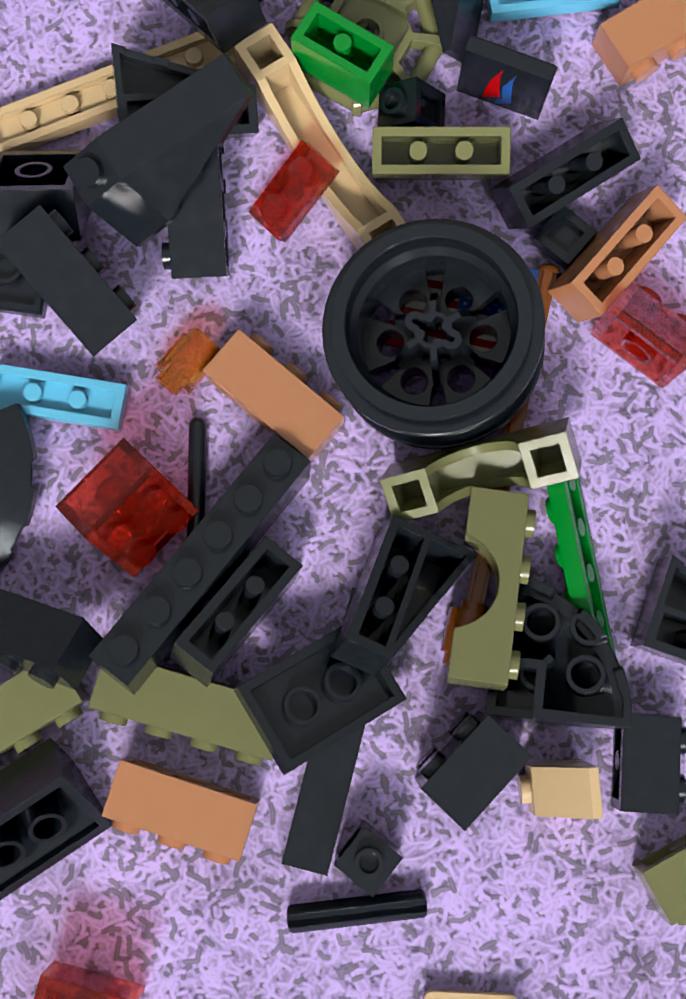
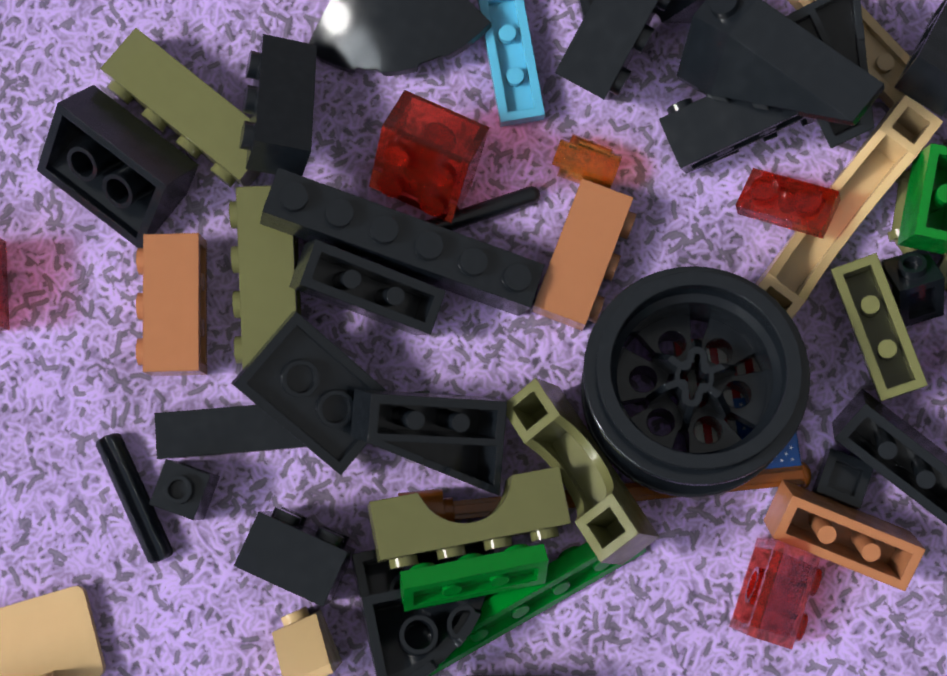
camera: 70 degrees right, 0 degrees up
(548, 603) = (473, 576): none -> green plate

